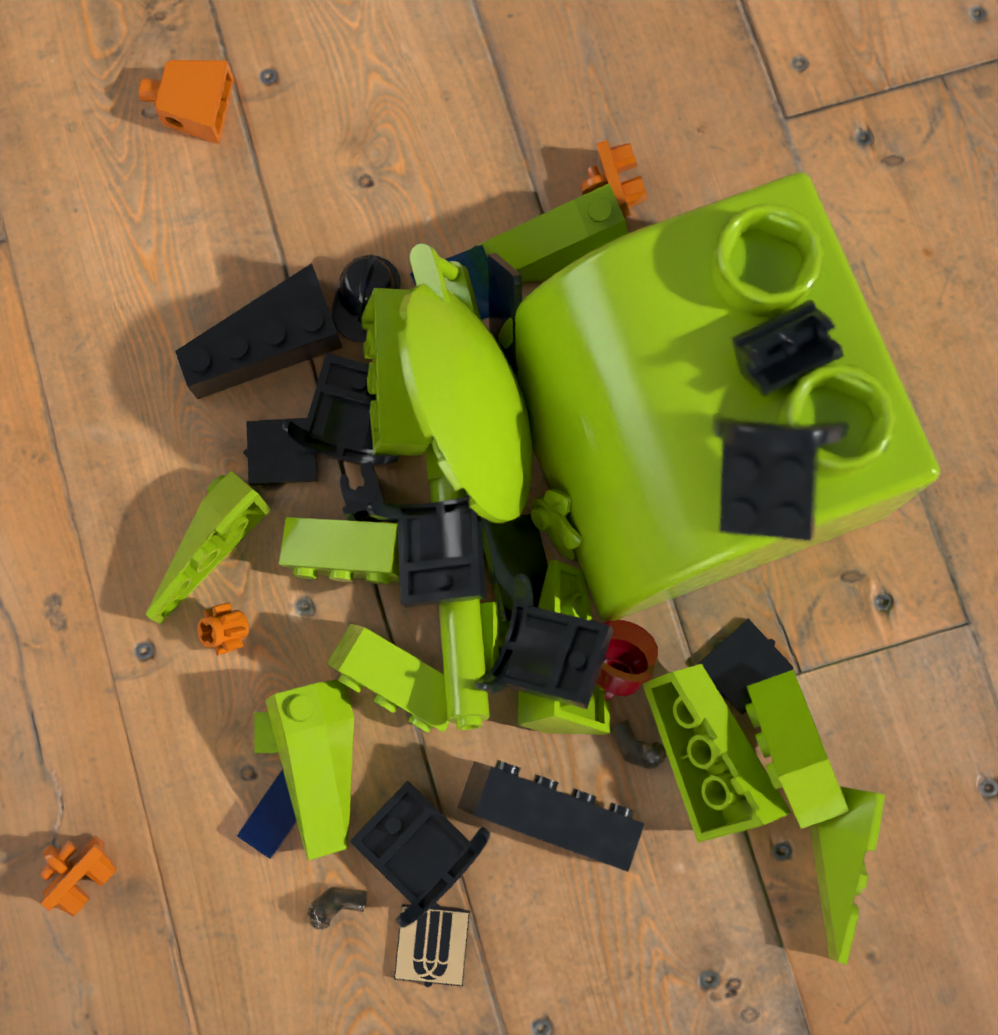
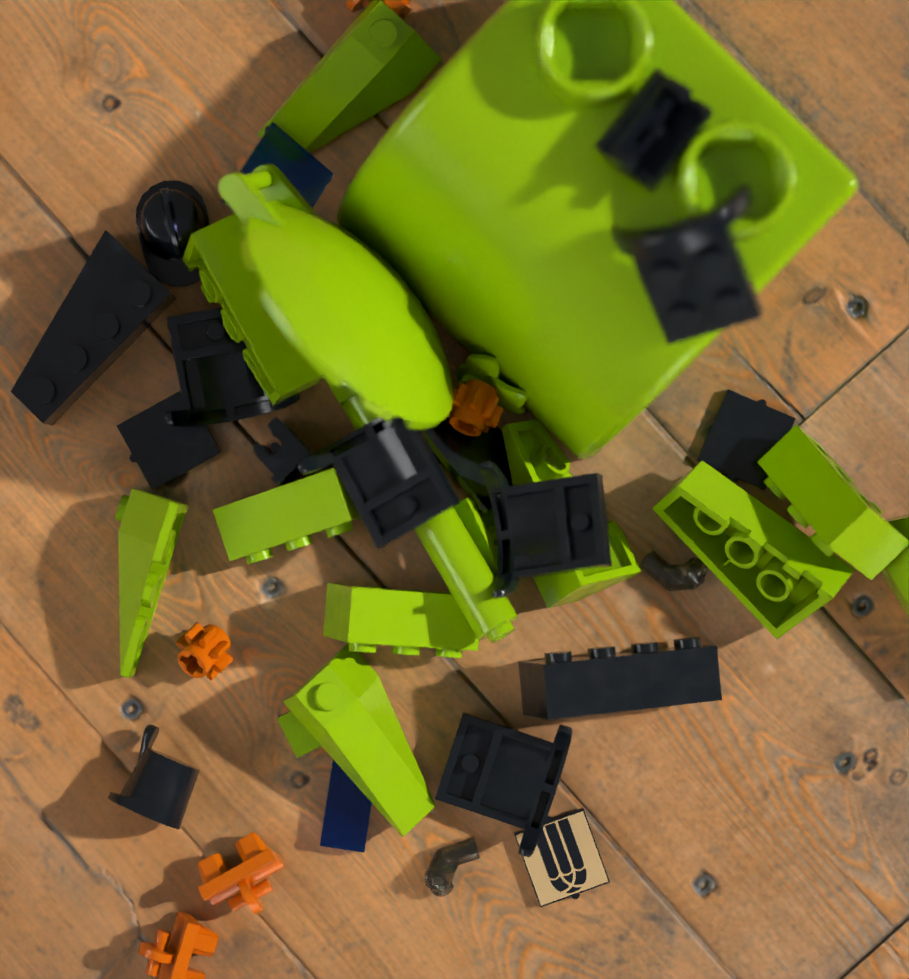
camera: 30 degrees left, 10 degrees up
(130, 720) = (158, 784): none -> black hat
(159, 835) = (222, 883): none -> orange hips
(504, 300) = (330, 182): black piece -> none
(534, 532) = (475, 408): none -> orange gear
(627, 660) = (628, 489): dark red piece -> none

